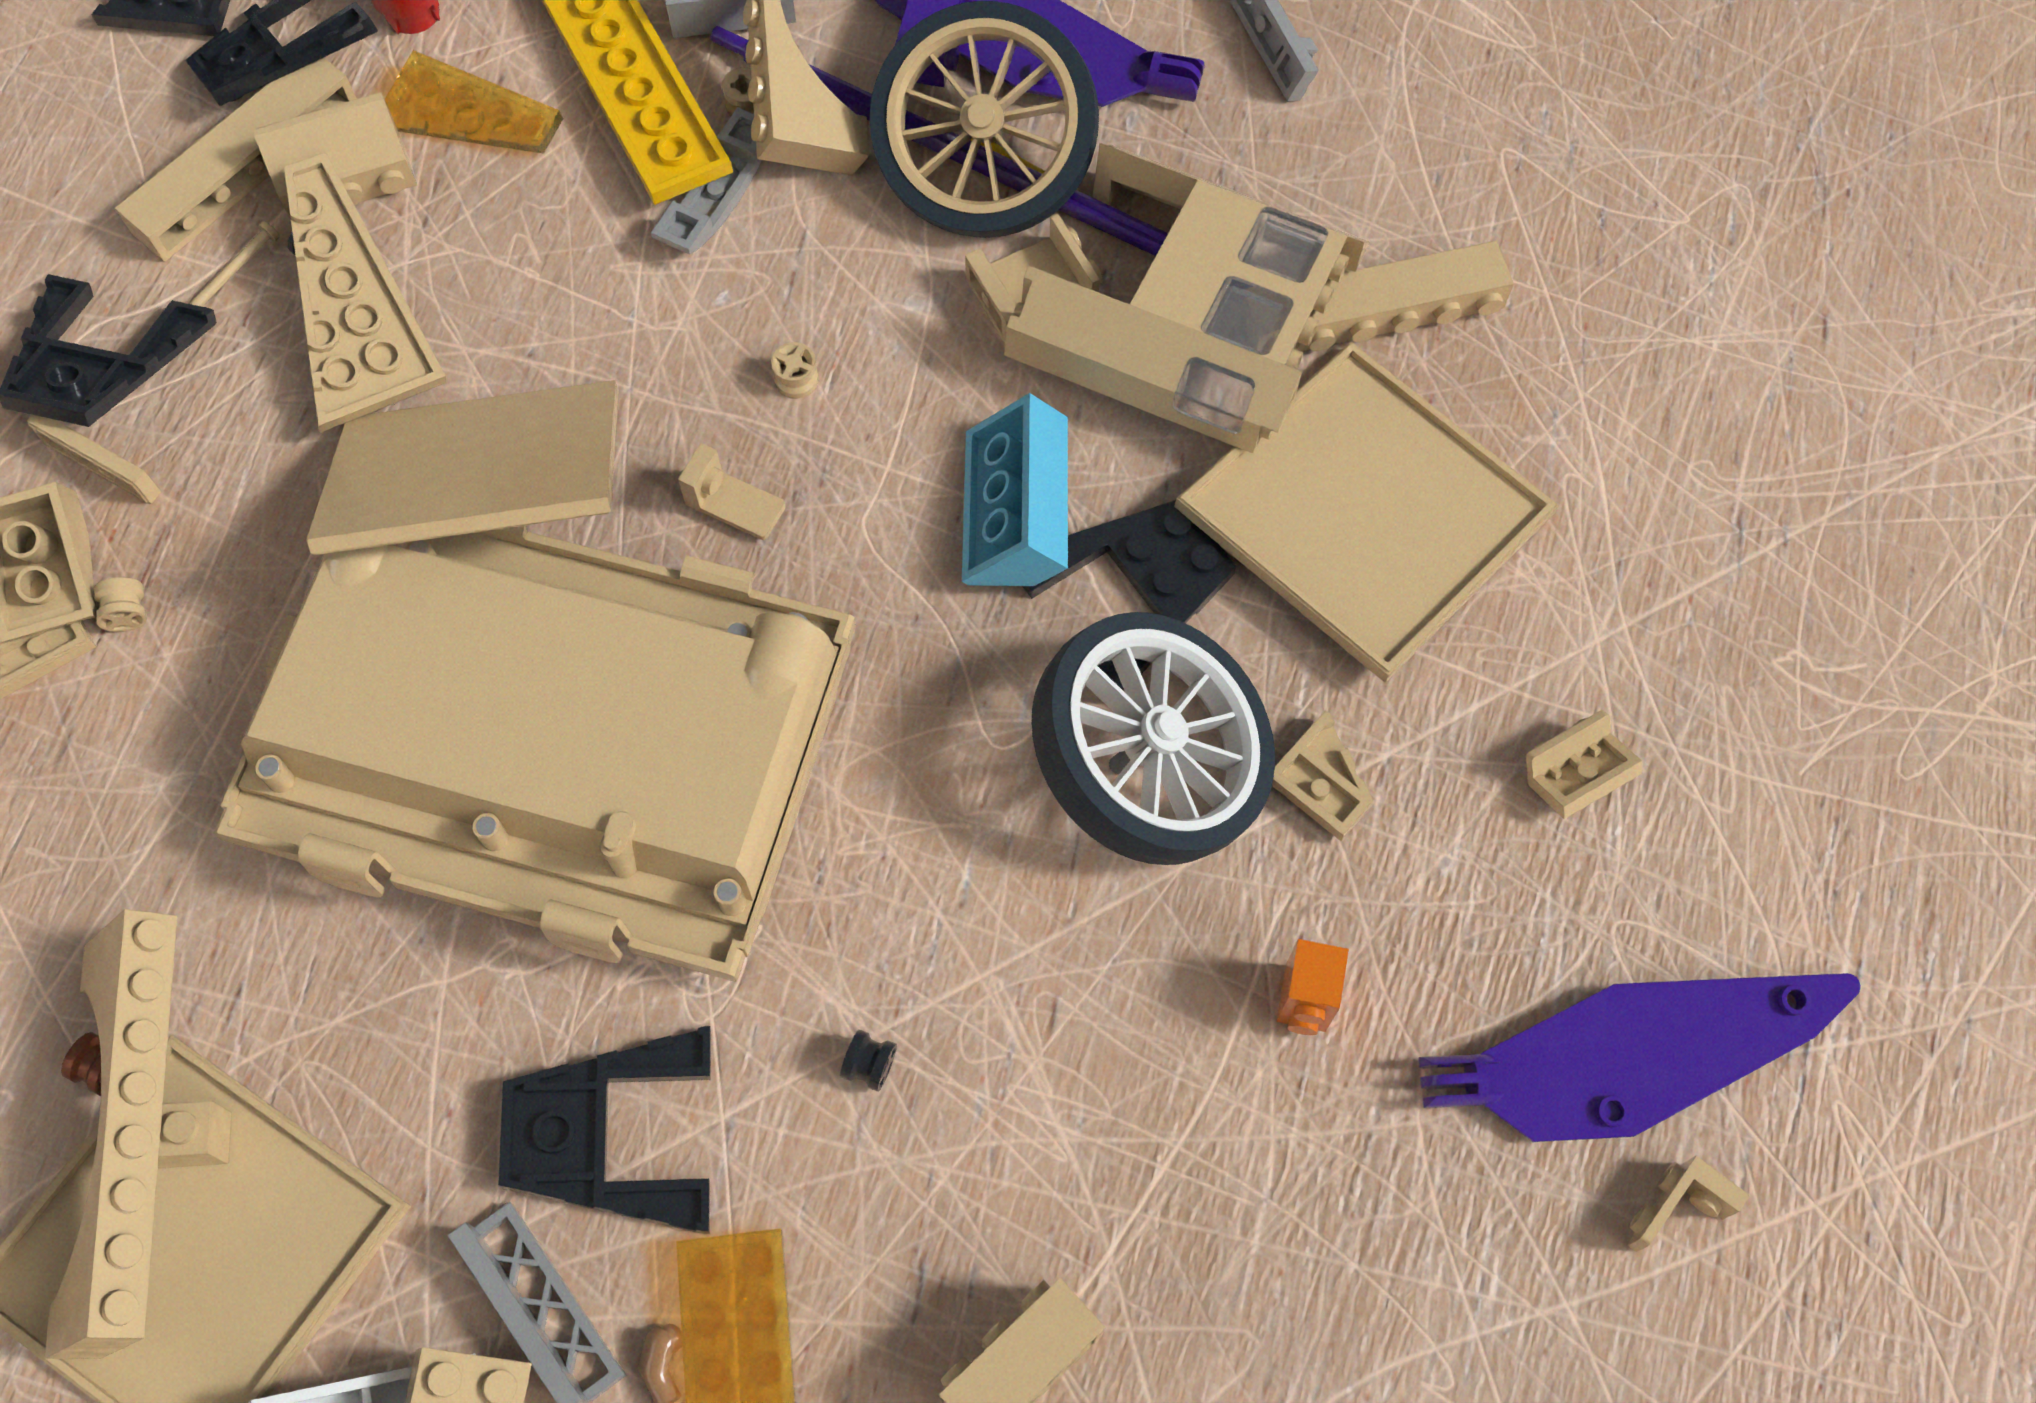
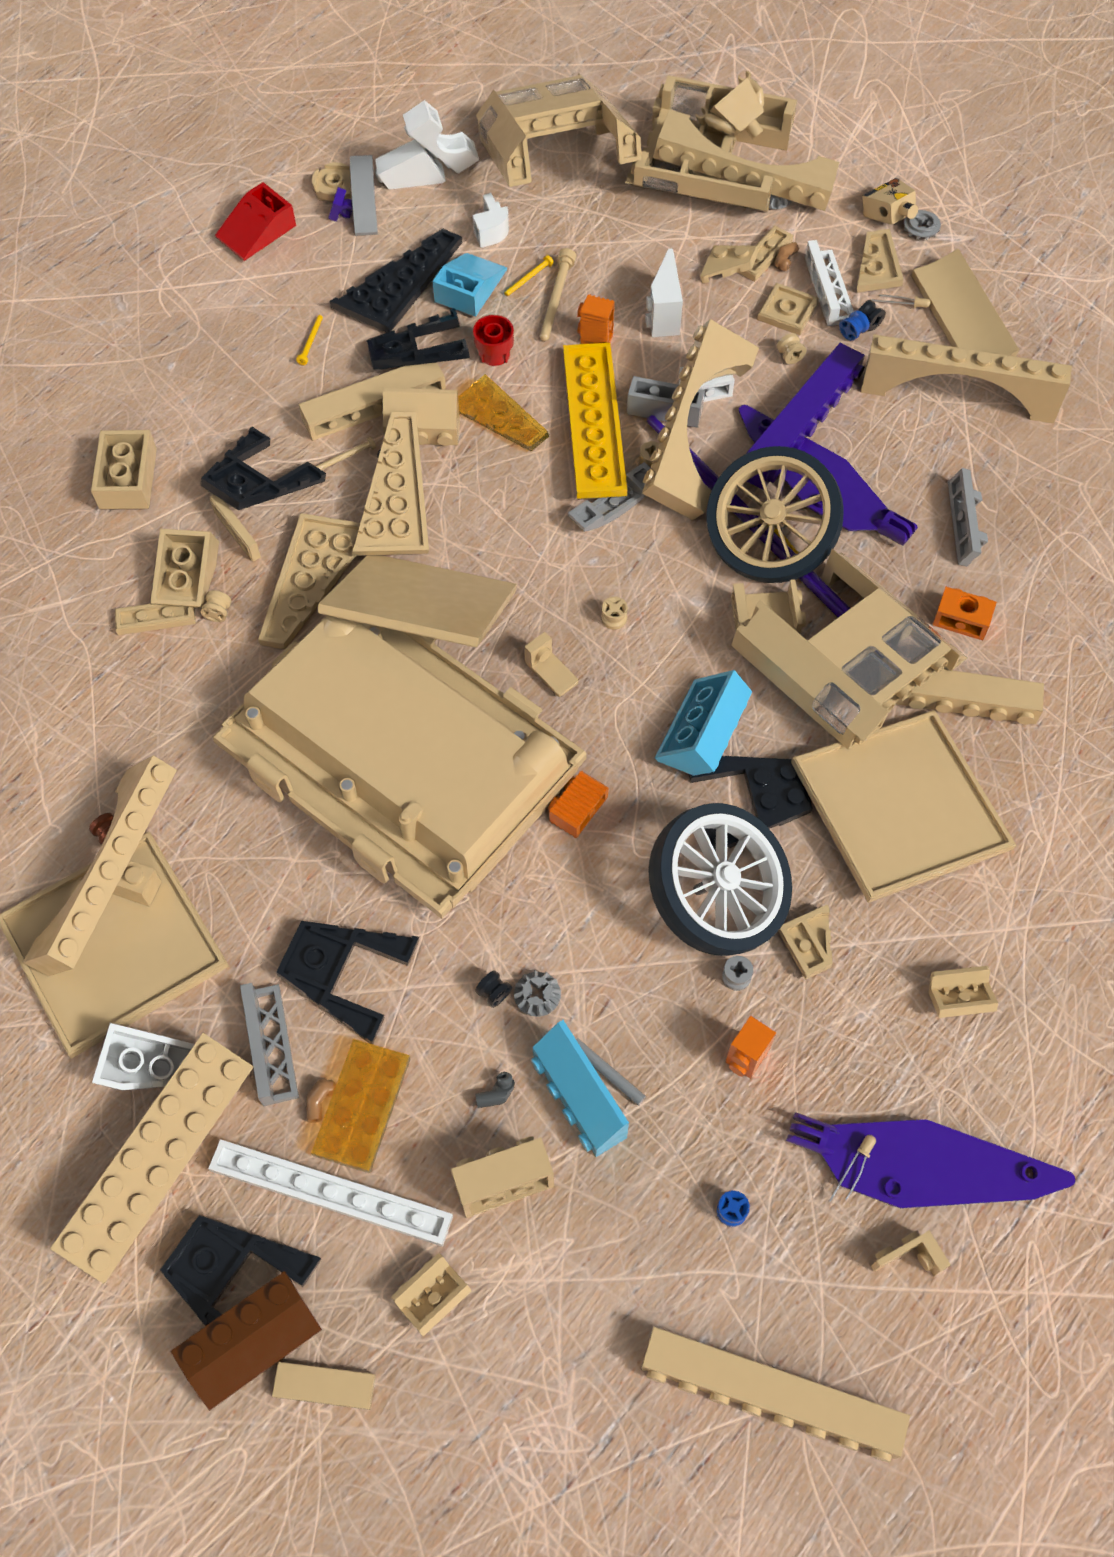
camera: 25 degrees right, 5 degrees down
(86, 129) = (302, 358): none -> yellow piece
(259, 475) = (312, 566): none -> tan wing
(872, 703) = (577, 804): none -> orange brick
(946, 1059) = (536, 1006): none -> light grey gear
(950, 1226) = (499, 1093): none -> dark grey arm
(1078, 1167) = (580, 1090): none -> medium azure slope
(1105, 1115) = (612, 1075): none -> light grey bar
(1236, 884) = (735, 979): none -> light grey wheel
(1331, 174) = (971, 623): none -> orange brick
(1397, 1242) = (737, 1204): none -> blue wheel
(1548, 1071) = (865, 1149): none -> piece

